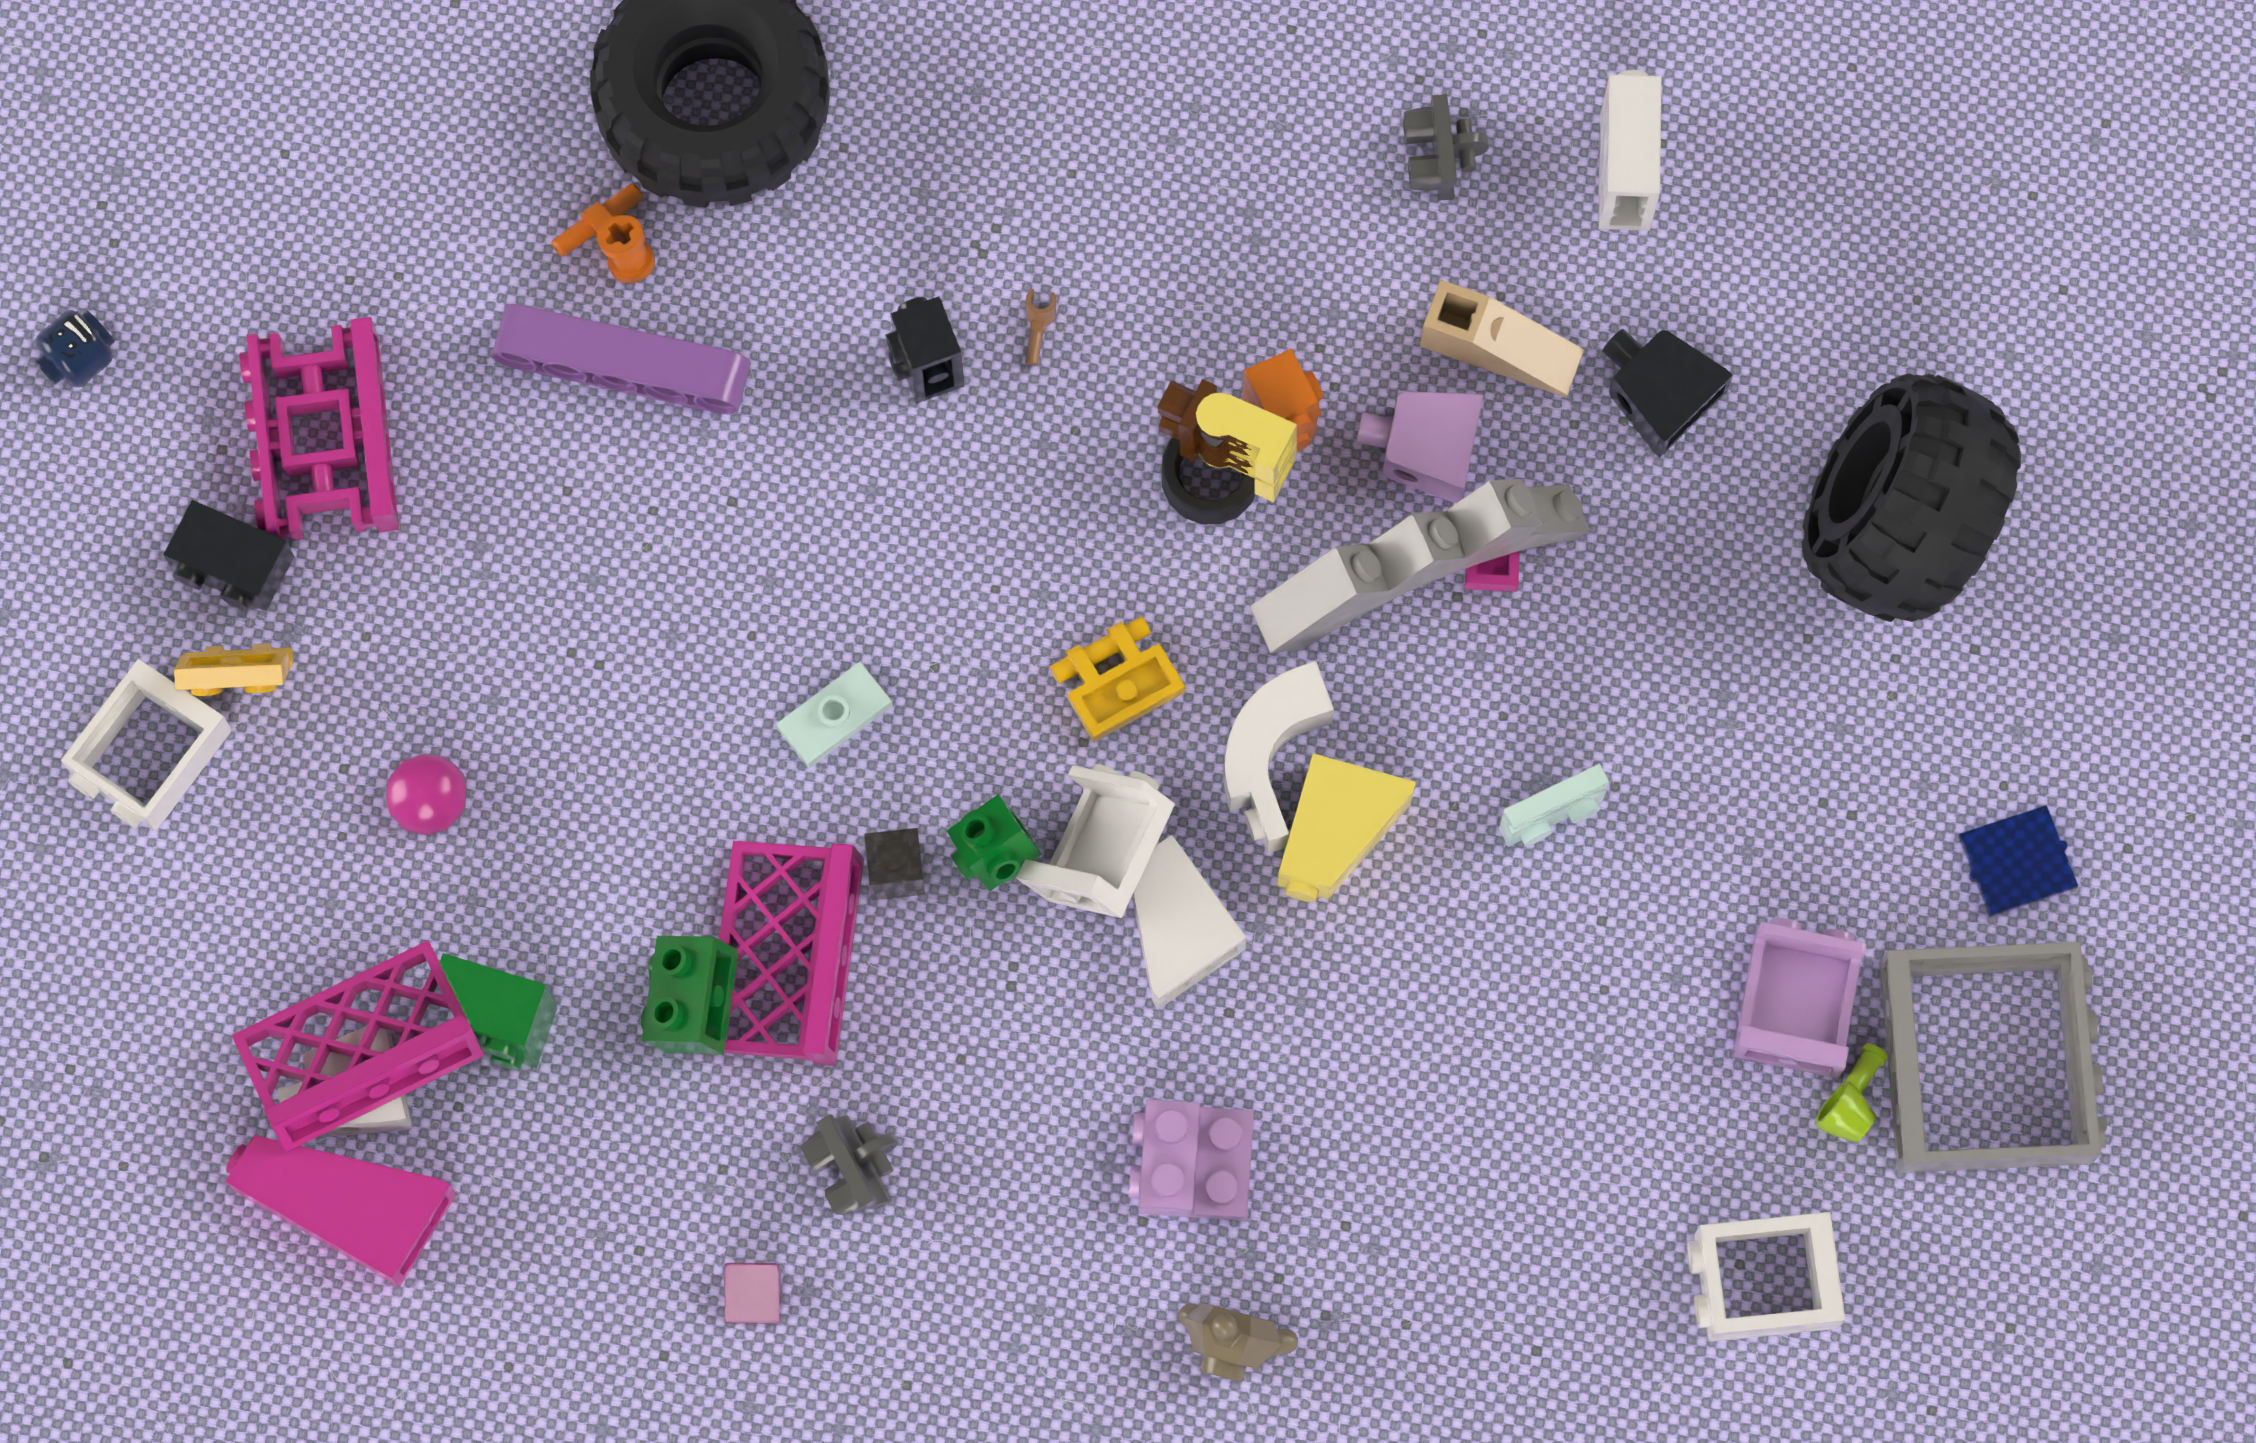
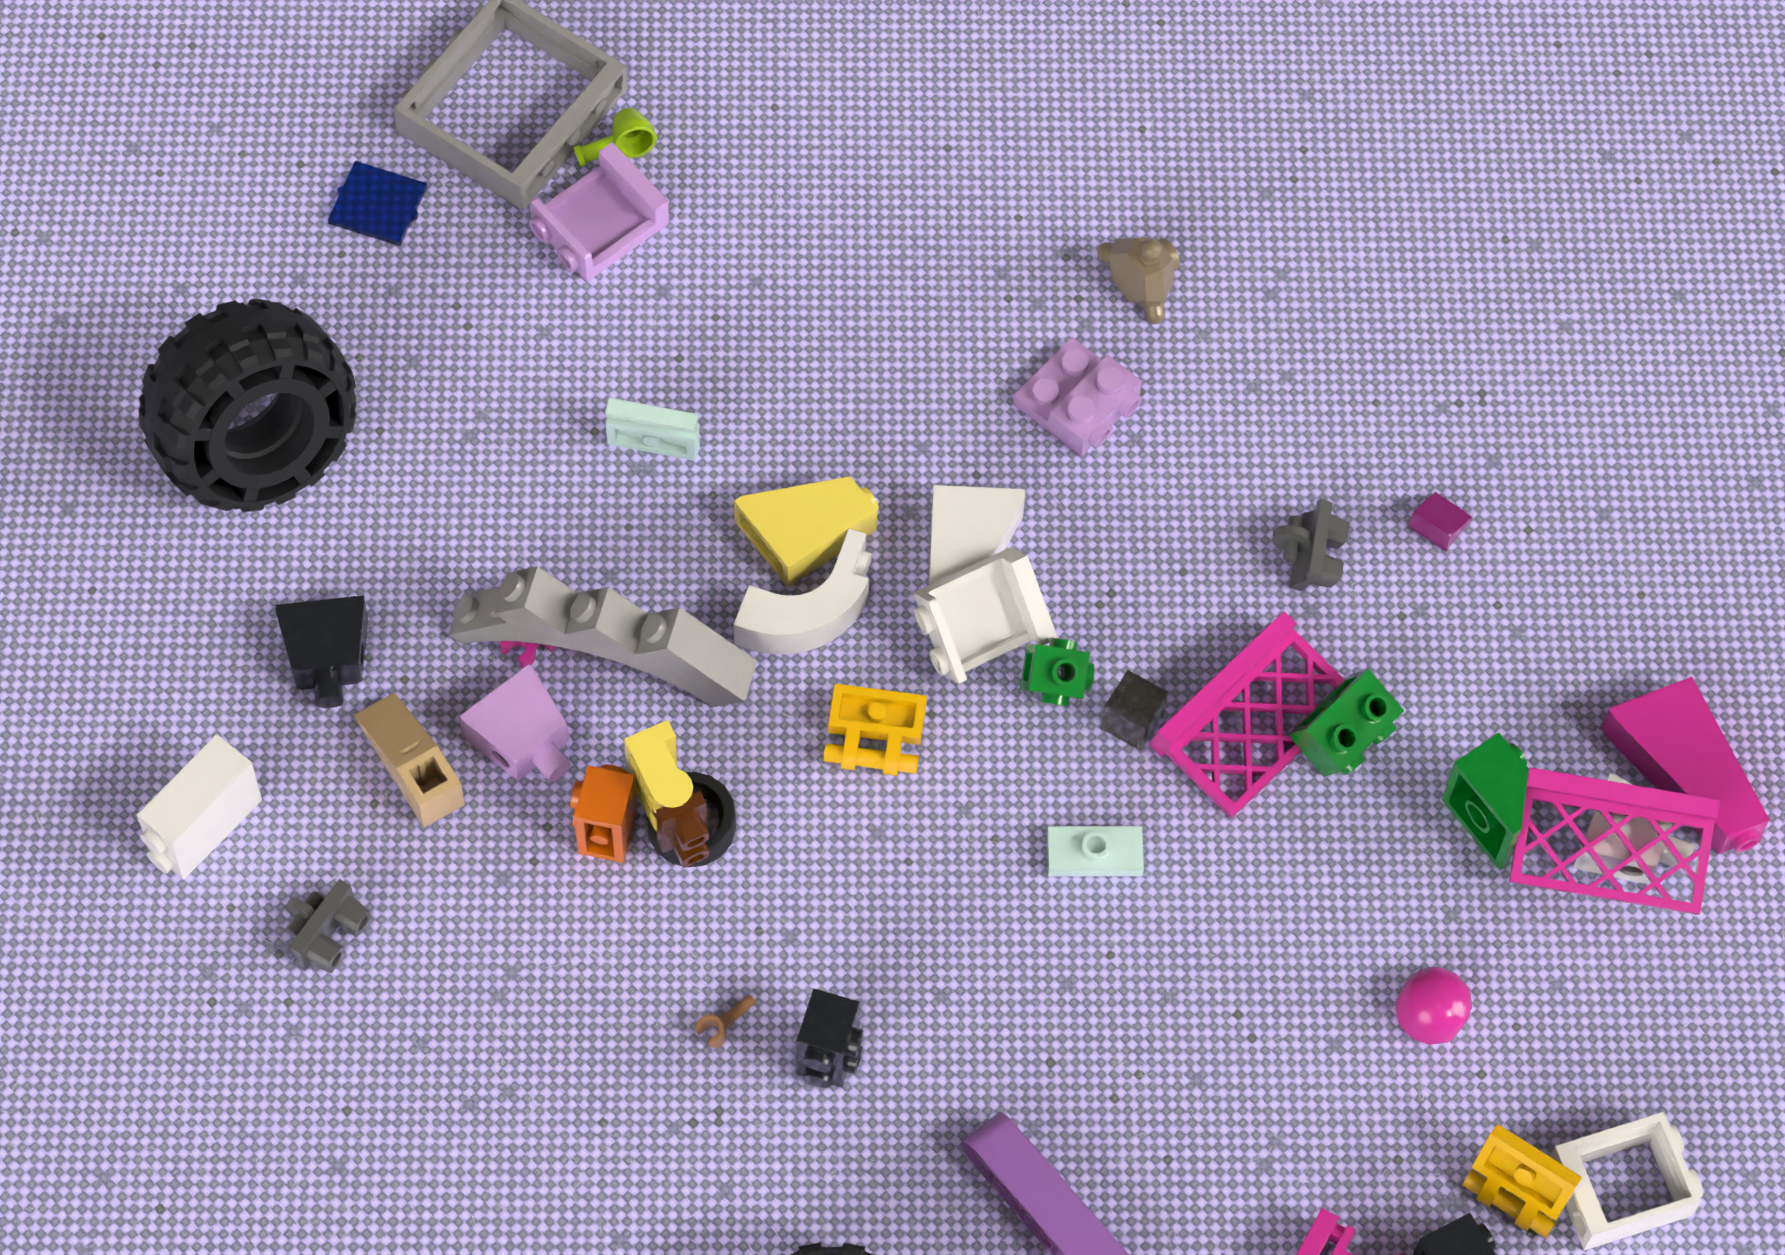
camera: 145 degrees left, 10 degrees down
(1822, 1271) = (733, 52): white window -> none

